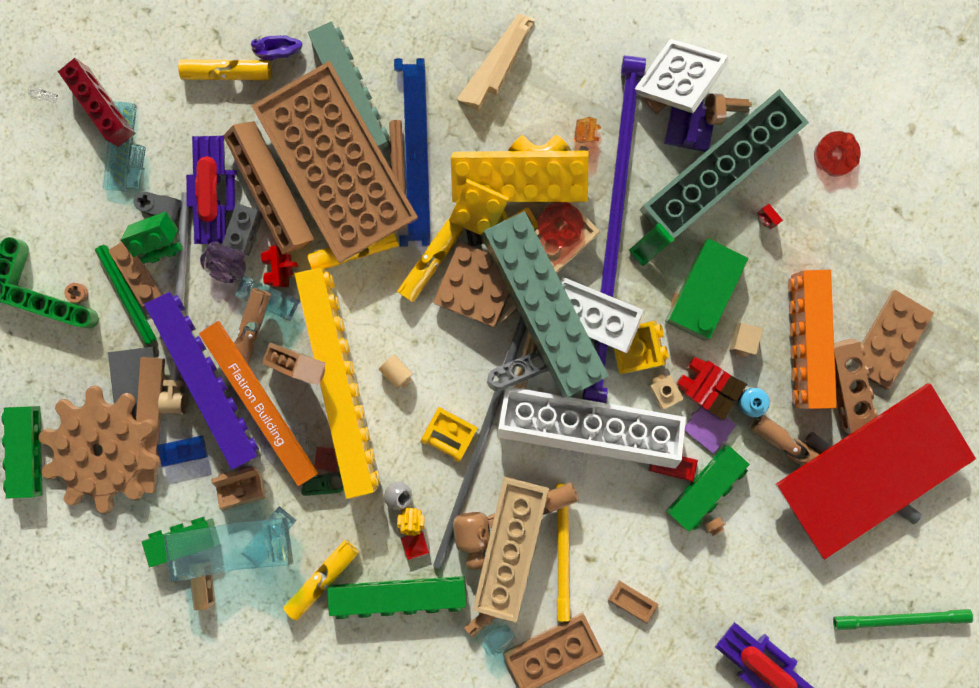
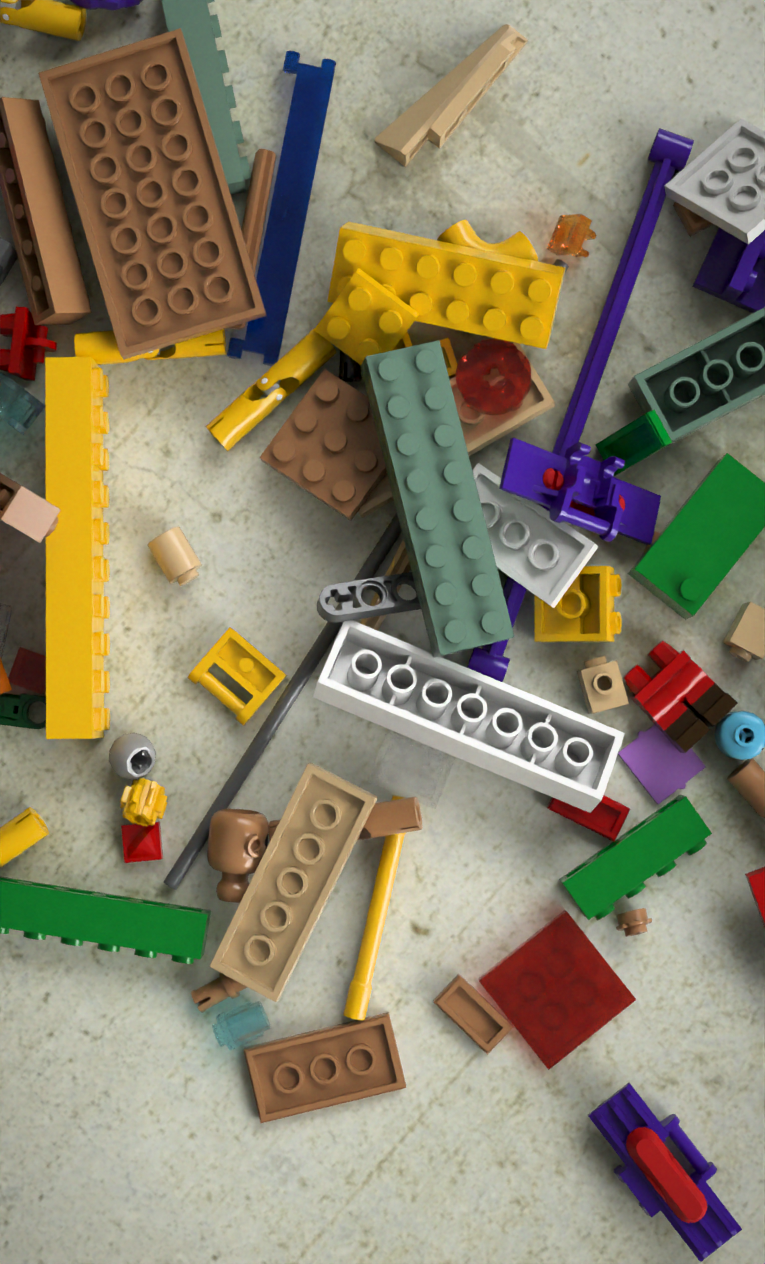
camera: 10 degrees right, 0 degrees up
(627, 280) = (581, 490): none -> dark purple piece
(679, 576) = (557, 989): none -> clear red plate

